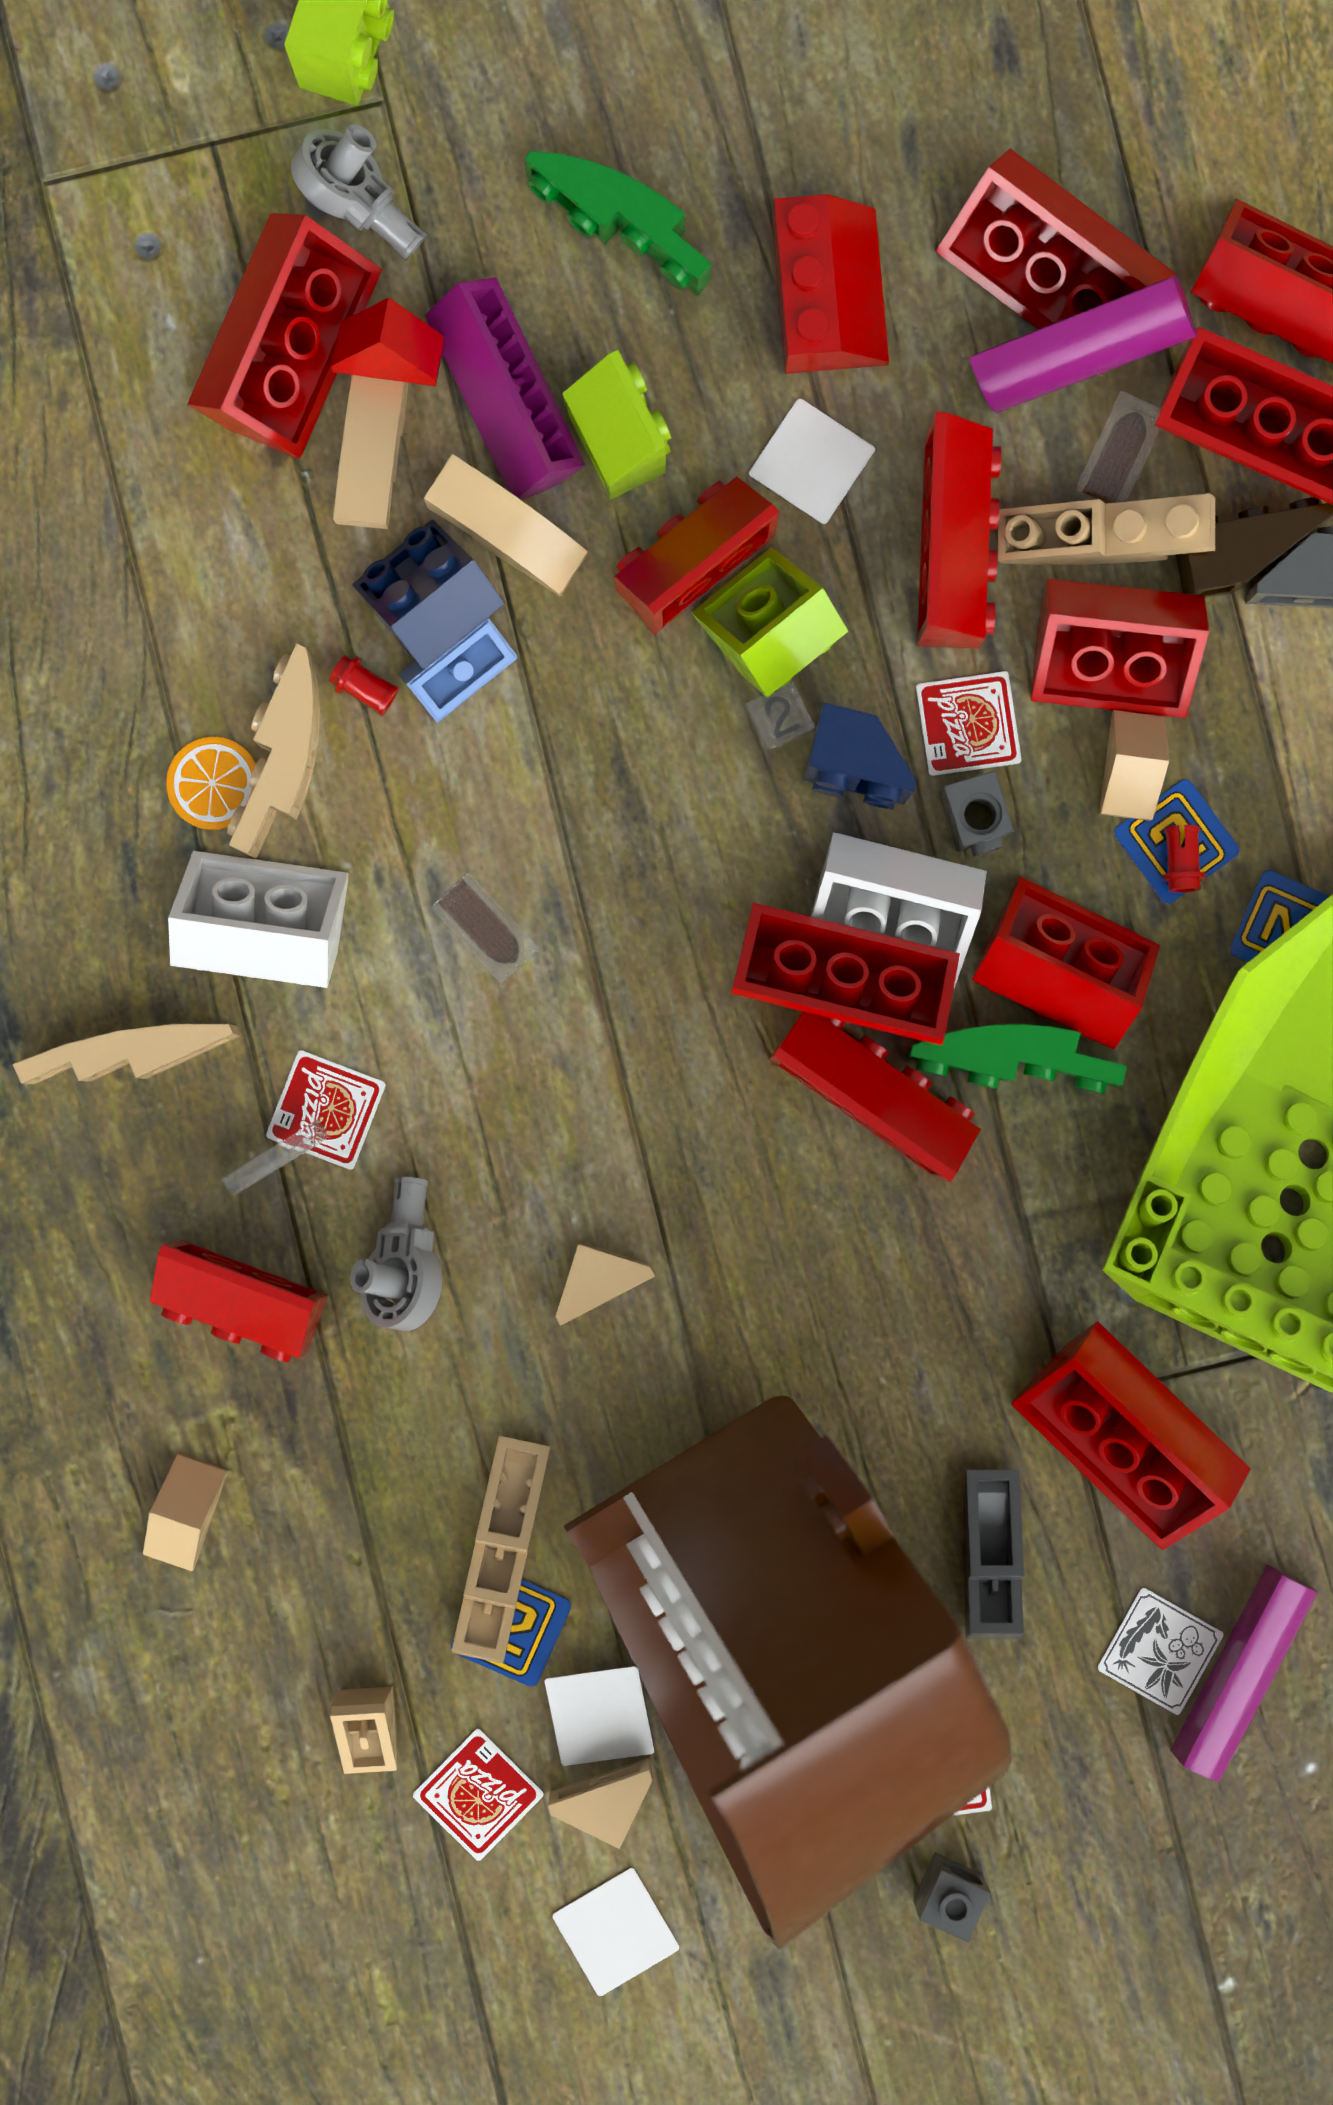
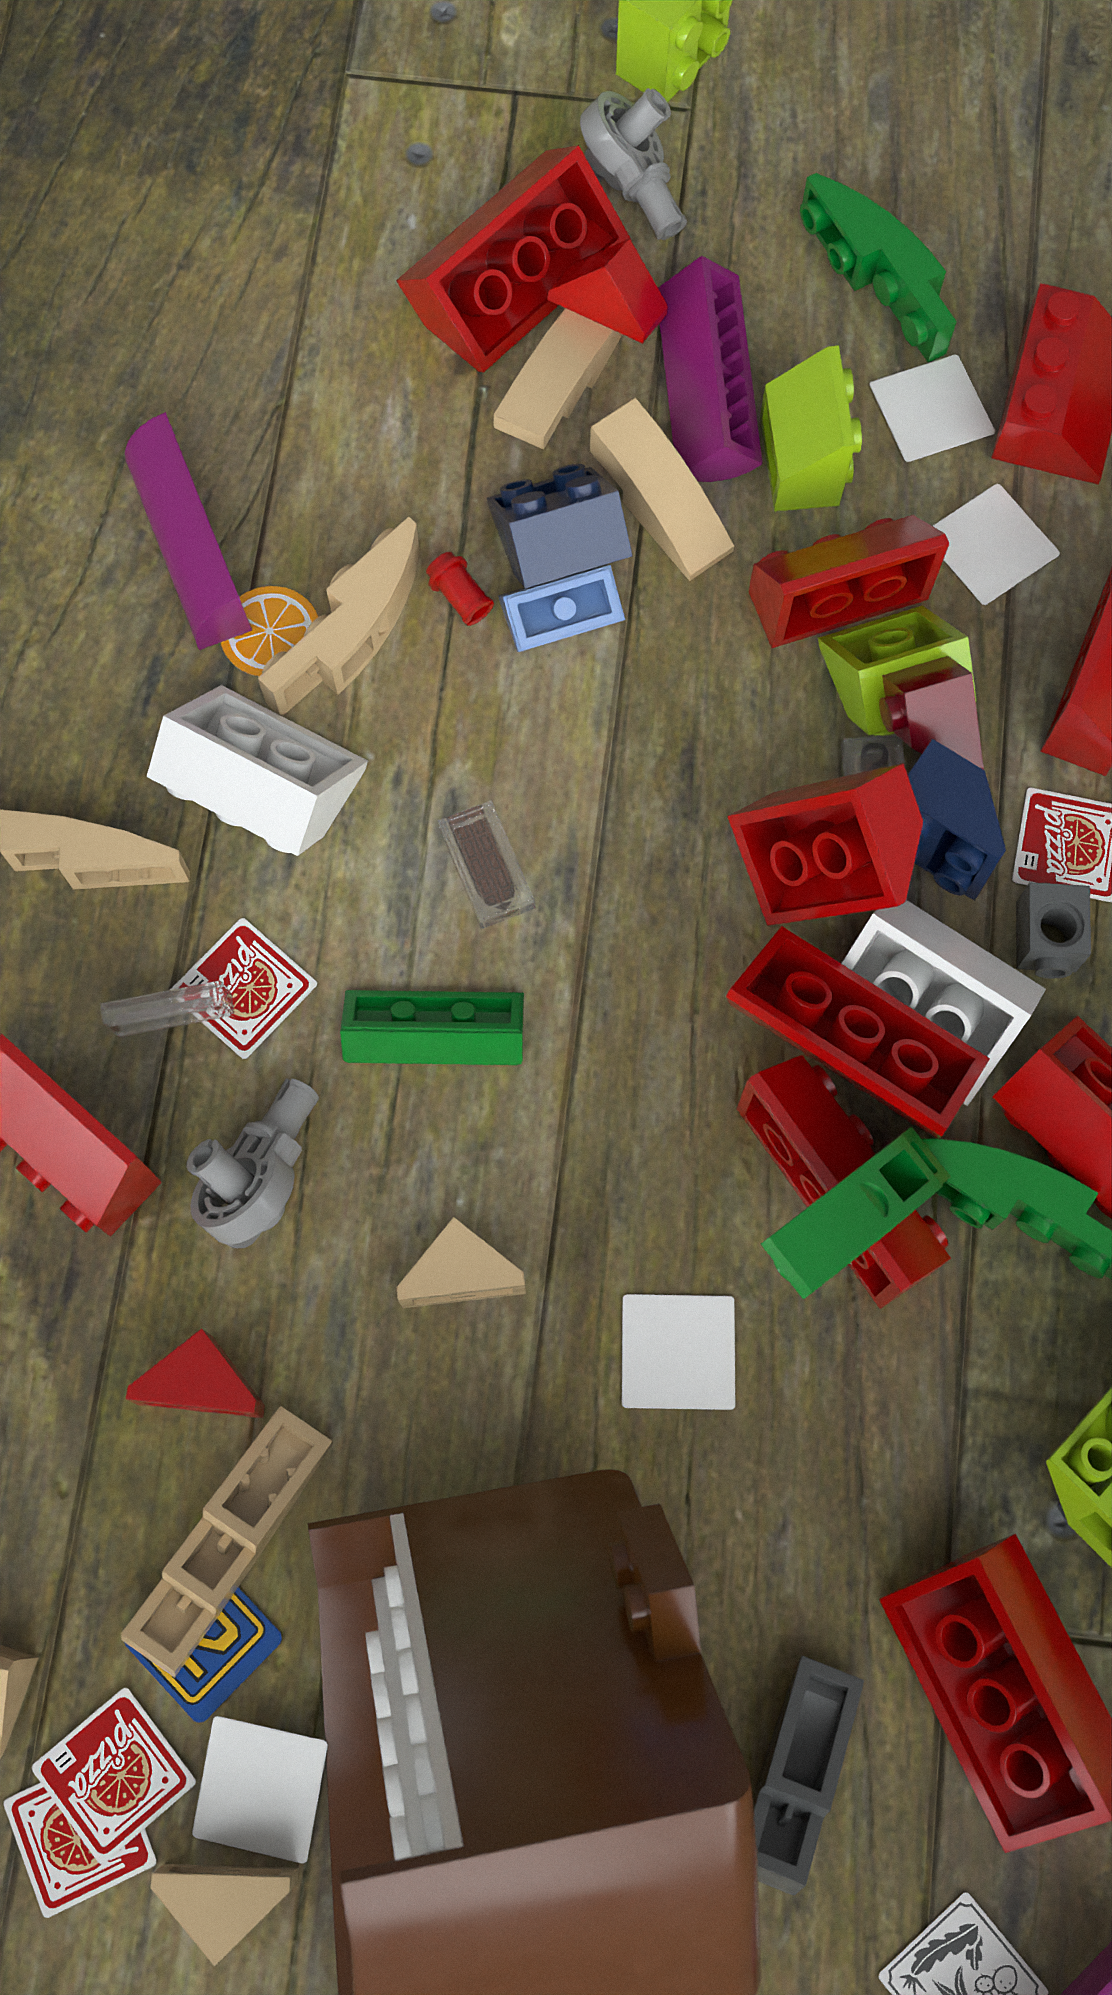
camera: 25 degrees right, 15 degrees down
(103, 725) = (184, 534): none -> magenta brick
(430, 1442) = (197, 1379): none -> red slope
(486, 1746) = (113, 1775): none -> sticker
(495, 1085) = (432, 1027): none -> green slope
(715, 342) = (931, 408): none -> white sticker
(769, 821) = (831, 845): none -> red slope
(792, 1273) = (678, 1352): none -> white sticker
(817, 666) = (933, 703): none -> slope
(897, 1135) = (855, 1213): none -> green slope

